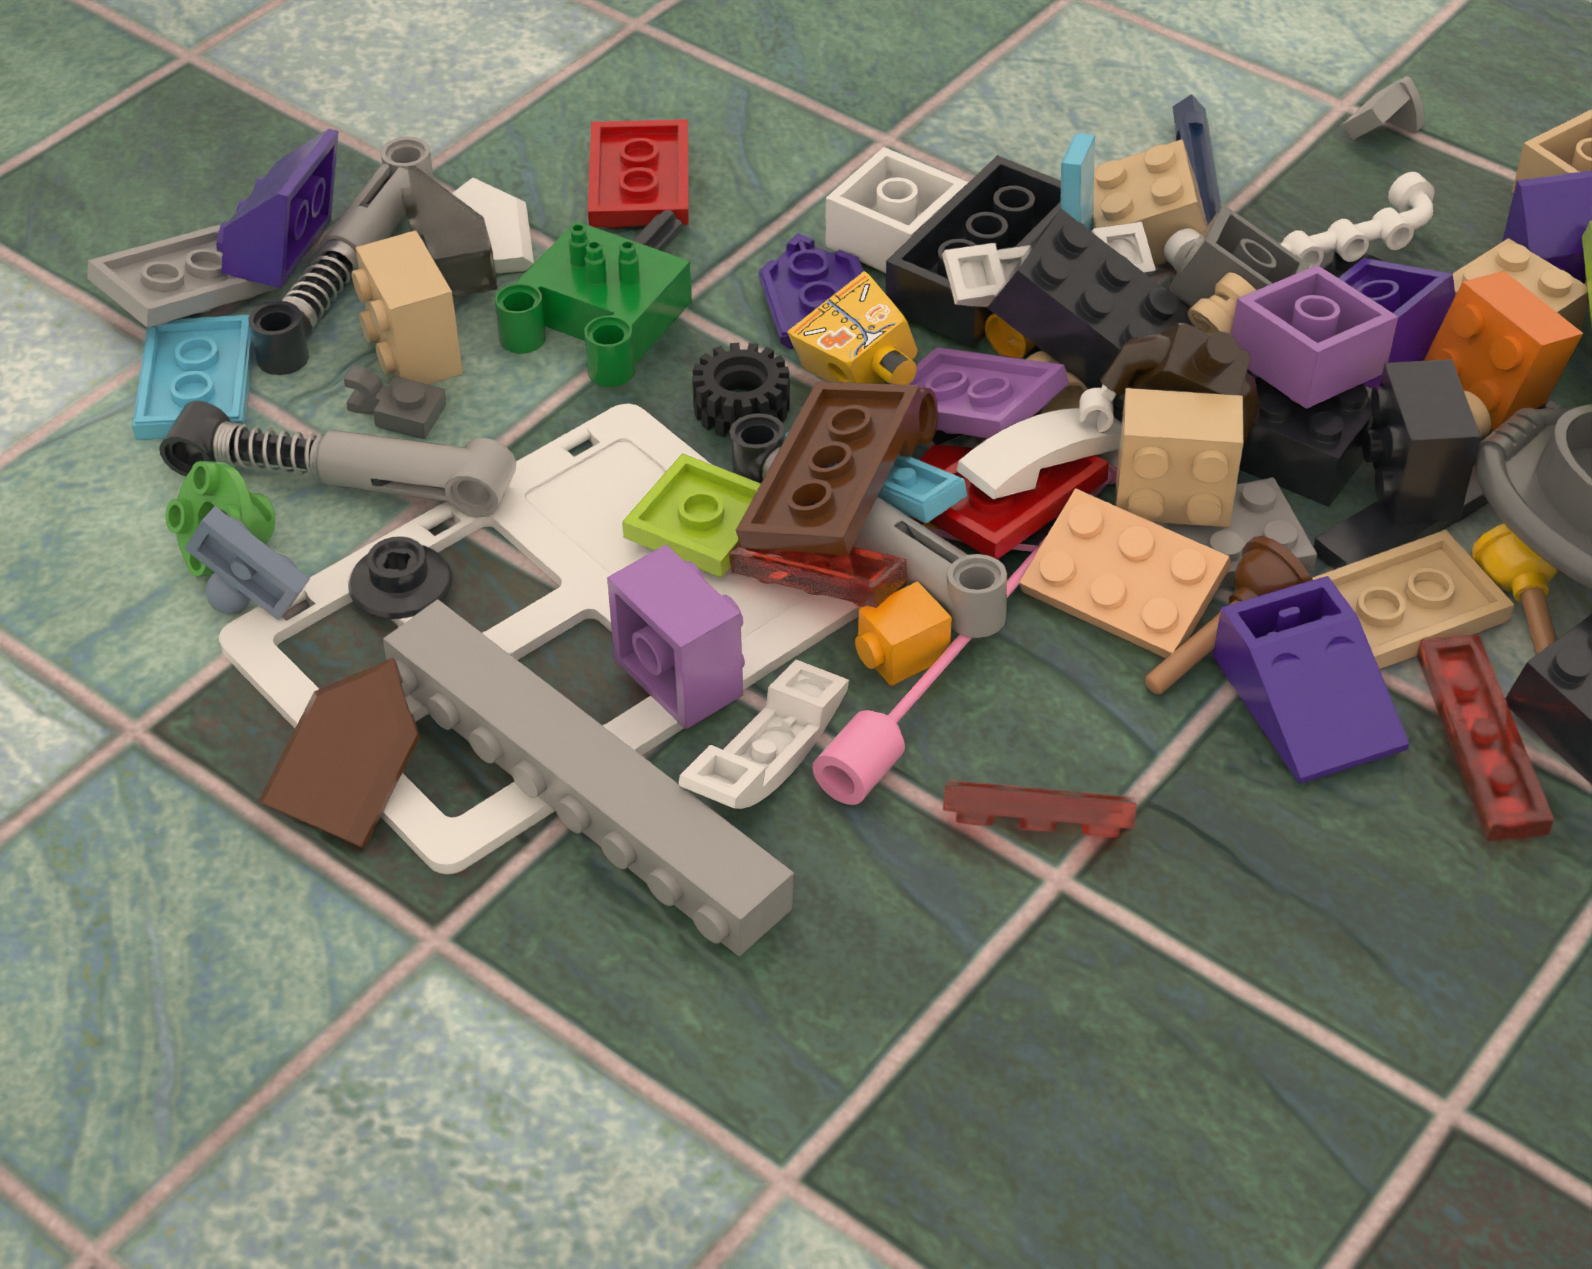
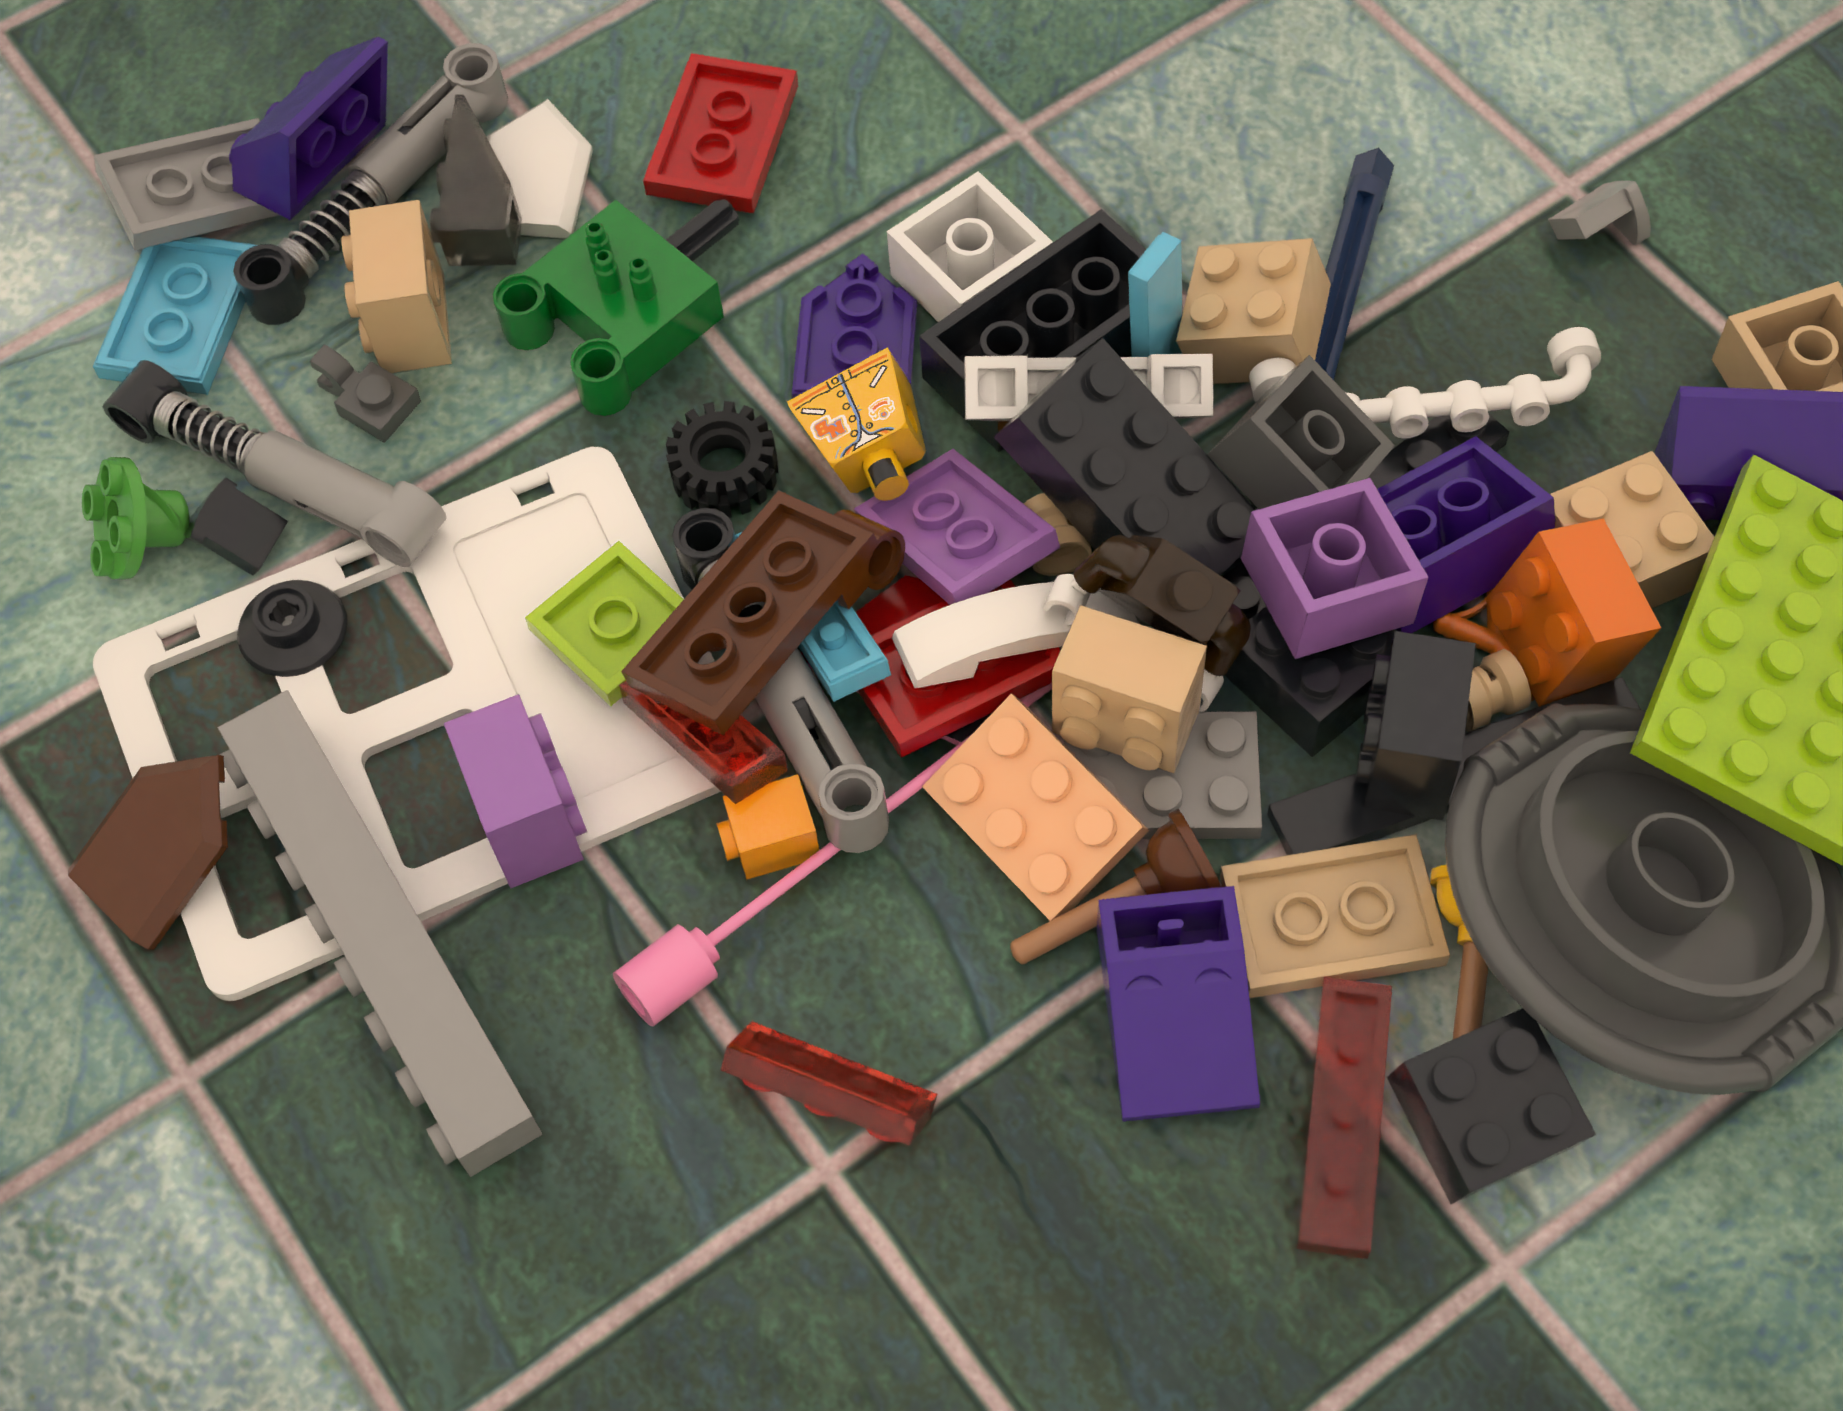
camera: 20 degrees right, 15 degrees up
(243, 567) = (121, 595): sand blue plate -> none
(319, 513) = (235, 527): none -> black tile
(773, 742) = (580, 937): white slope -> none
(1218, 311) = (1236, 505): tan wheel -> none

